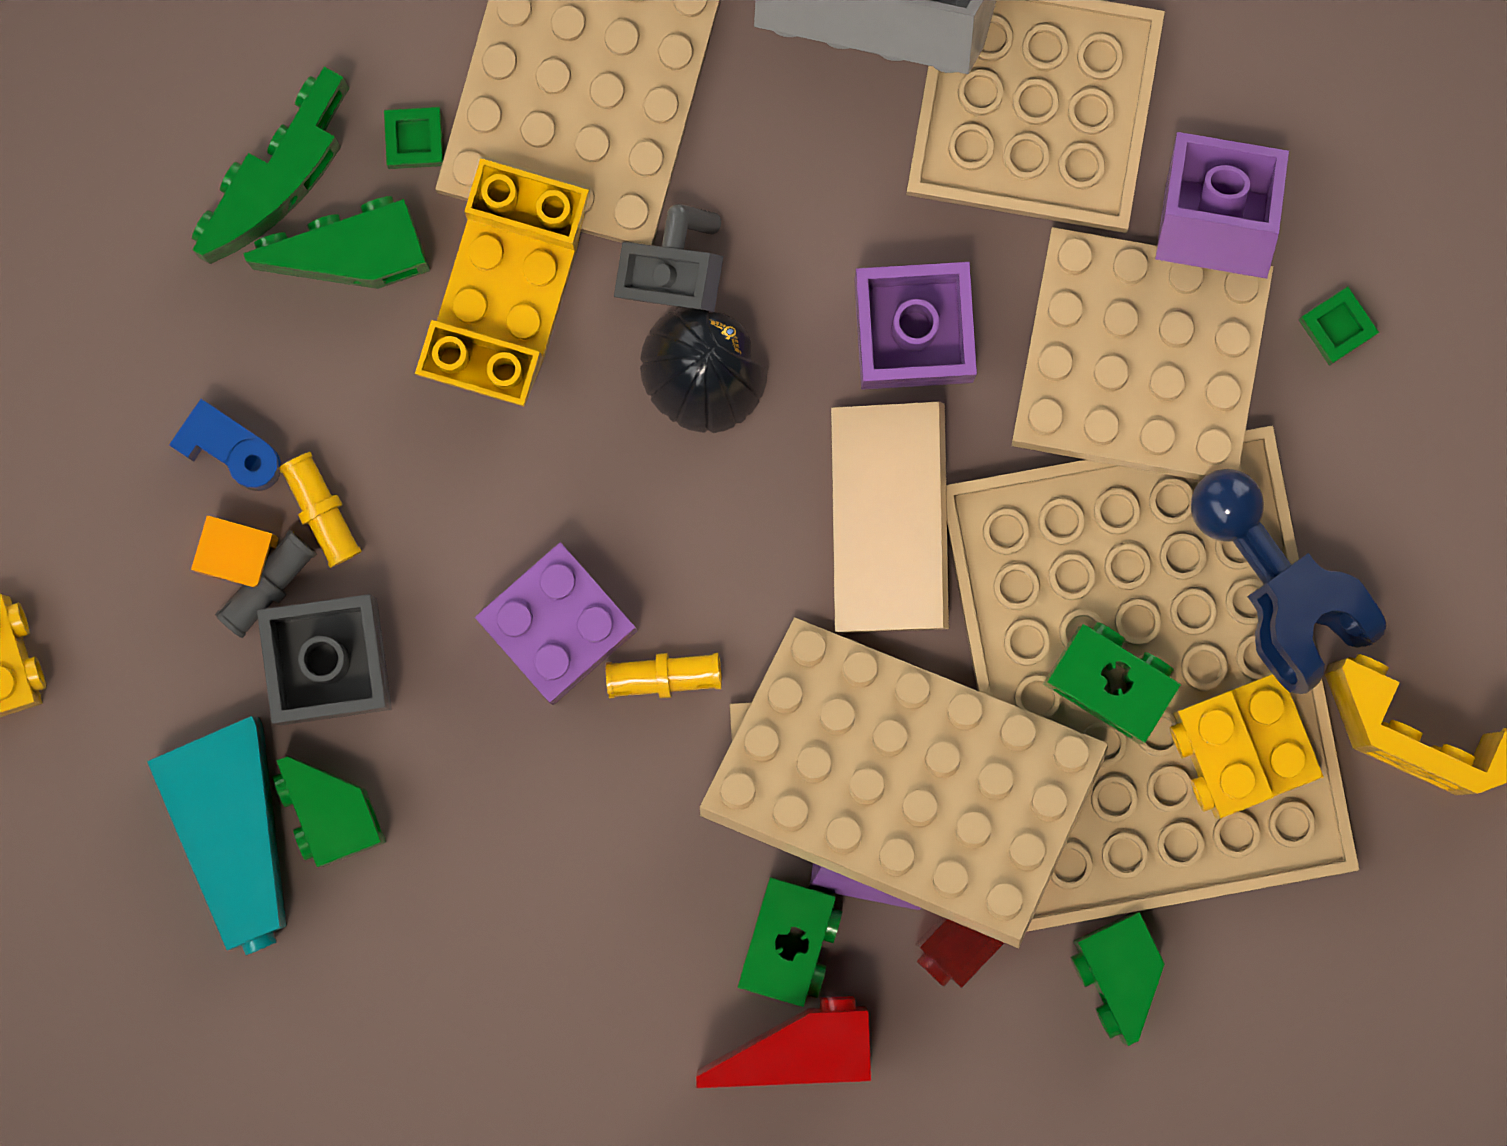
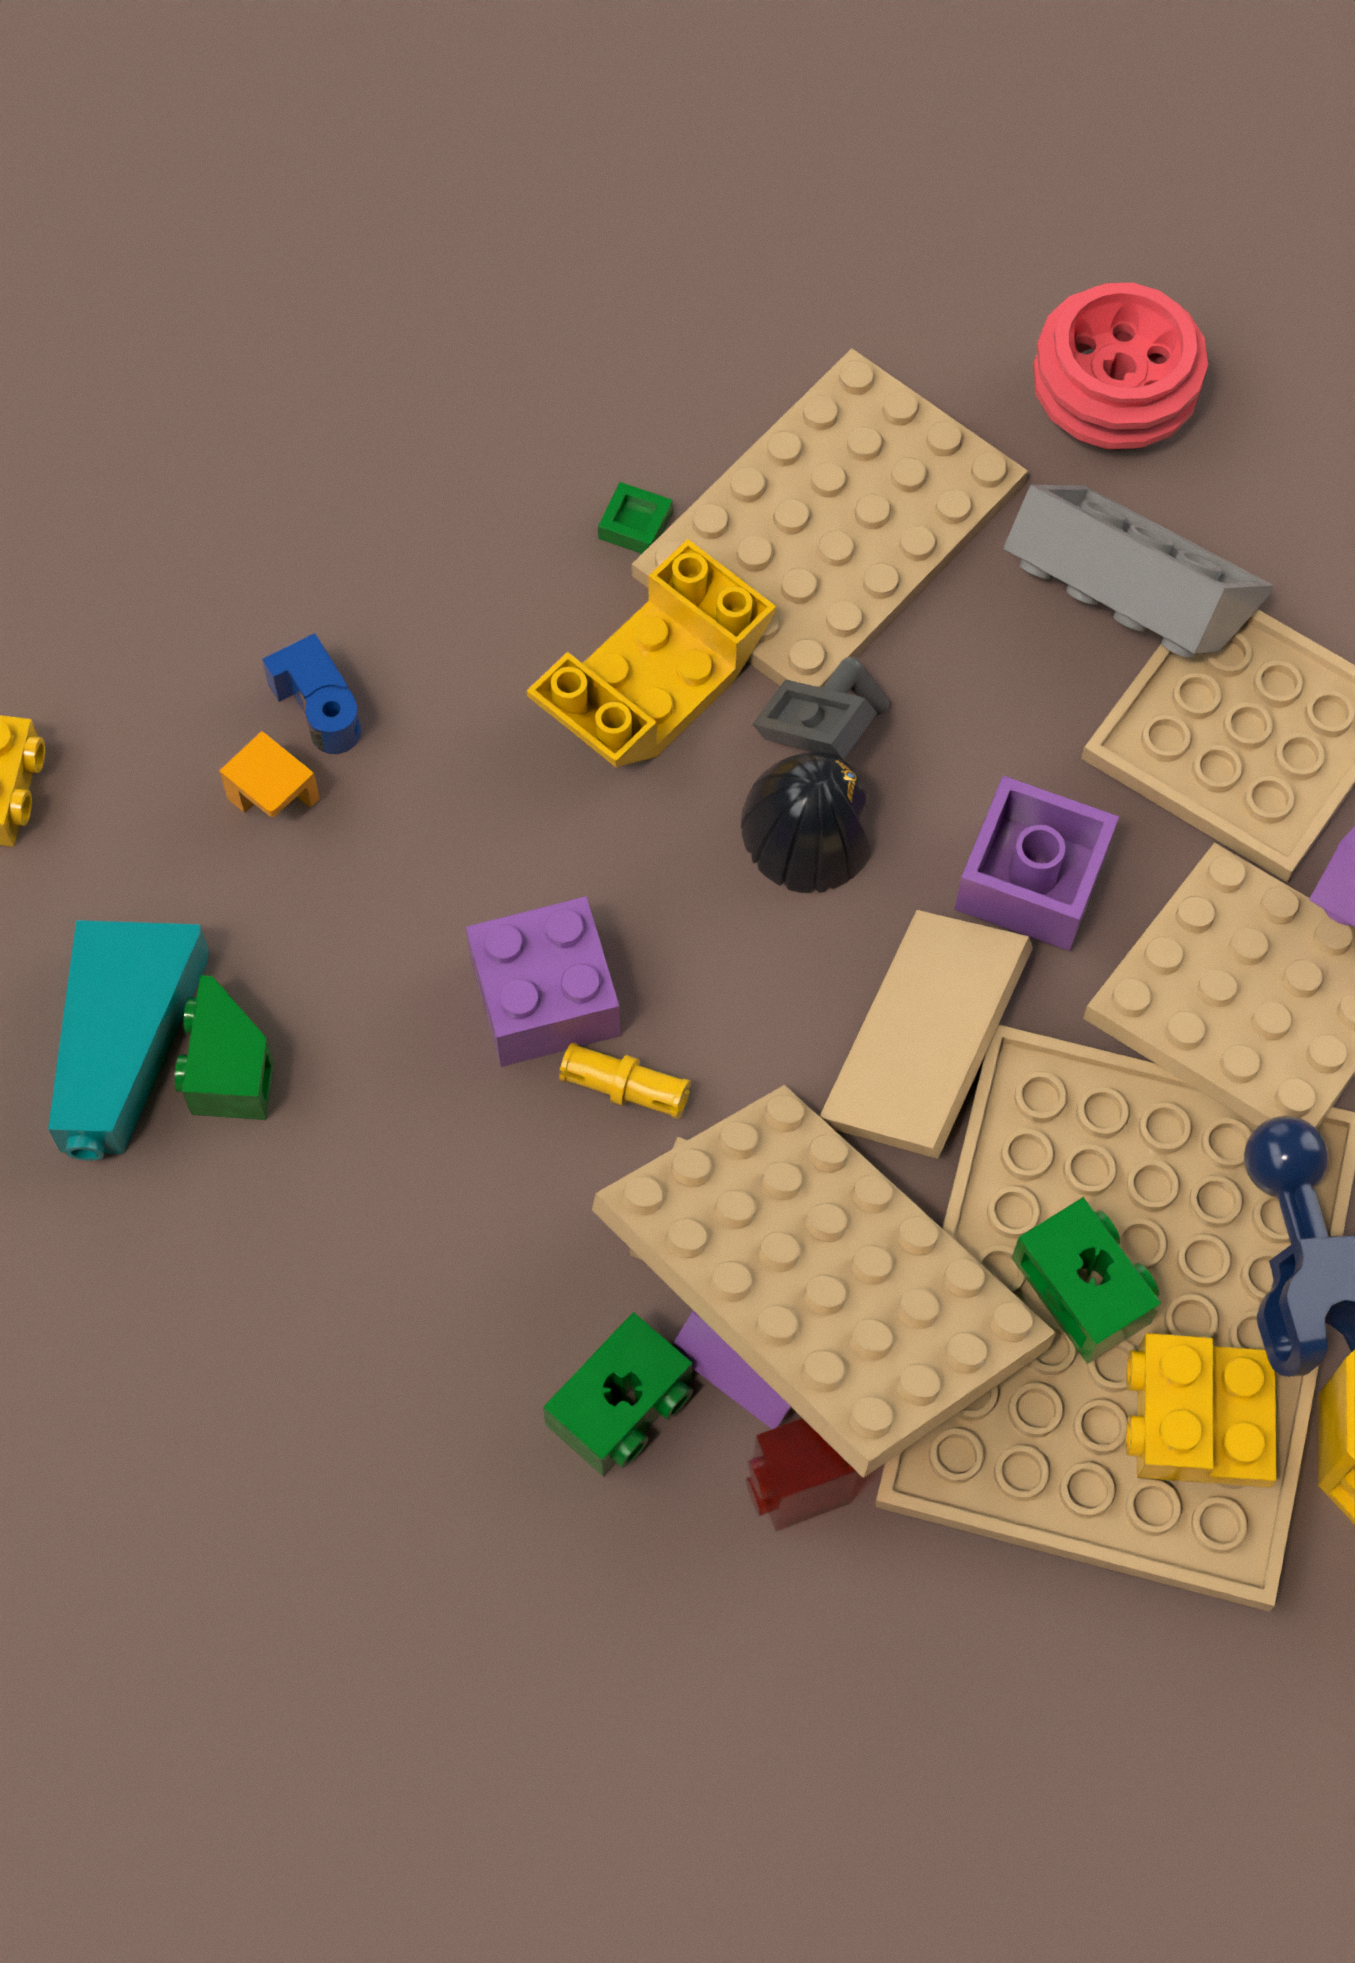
camera: 25 degrees right, 20 degrees down
(264, 192) = (477, 500): green slope -> none
(278, 572) = (284, 829): dark grey pin -> none
(320, 509) = (372, 785): yellow pin -> none
(324, 660) = (299, 909): dark grey brick -> none
(358, 251) = (531, 581): green slope -> none
(808, 1048) = (575, 1500): red slope -> none
(1125, 972) = (966, 1590): green slope -> none

